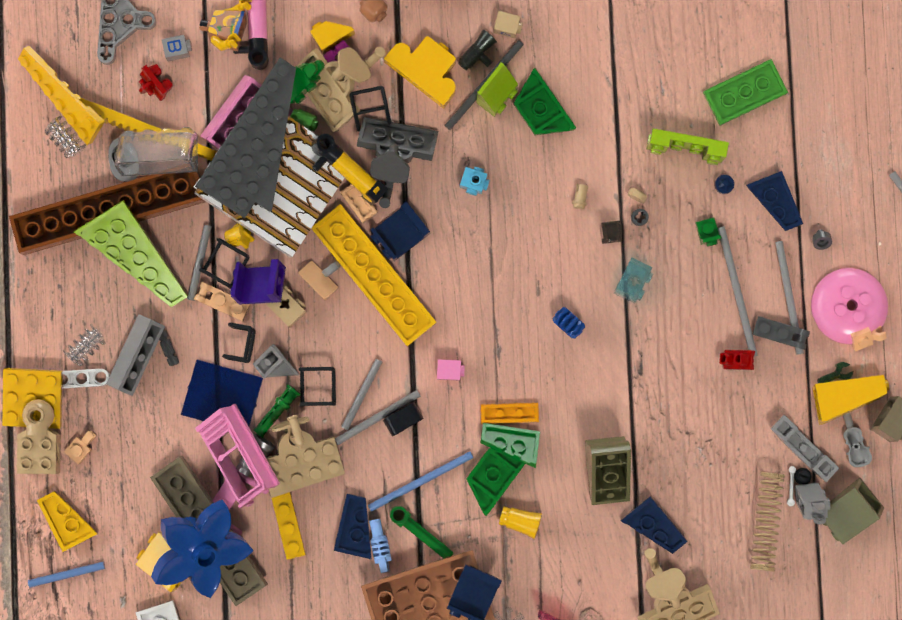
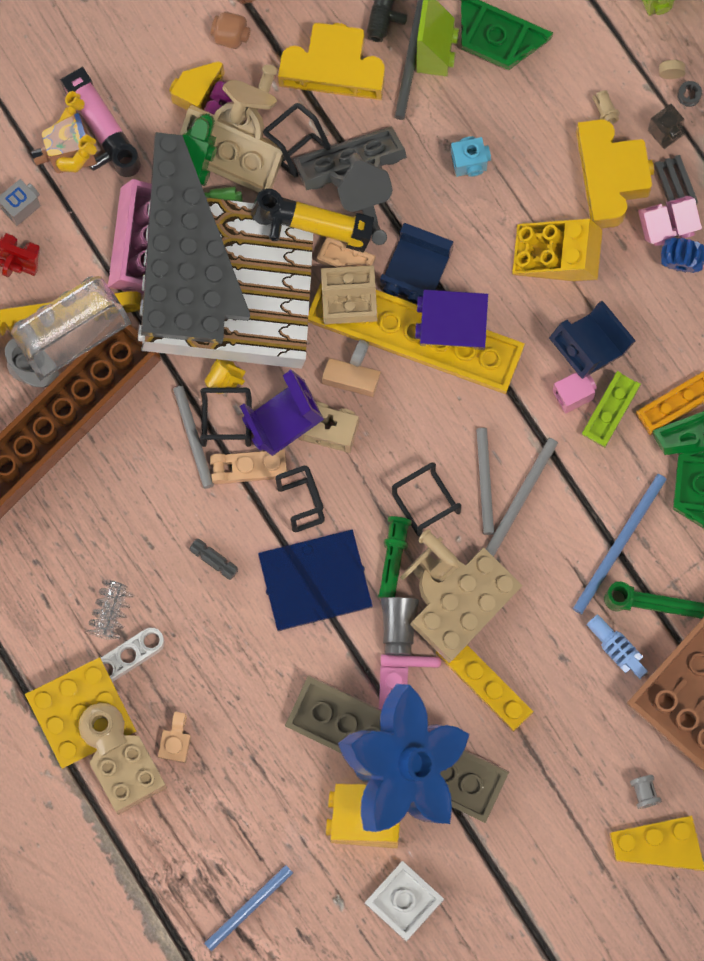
camera: 25 degrees left, 10 degrees down
(64, 521) = (208, 842): yellow wing -> none
(128, 246) = (94, 457): lime wing -> none
(135, 355) = (180, 586): light grey brick -> none
(231, 420) = (333, 611): bright pink piece -> none
(274, 364) = (357, 502): light grey slope -> none
(345, 228) = (349, 294): none -> tan slope
(354, 529) = (574, 647): dark blue wing -> none
(397, 284) = (452, 319): none -> dark purple panel
(403, 419) = (554, 480): black beam -> none
(465, 394) = (611, 409): none -> lime hinge
(478, 345) = (592, 340): none -> dark blue panel
(493, 273) = (558, 250): none -> yellow slope
(558, 241) = (611, 171): none -> yellow brick
(584, 296) = (665, 222): none -> bright pink piece
(598, 255) = (668, 163): none -> dark grey tile

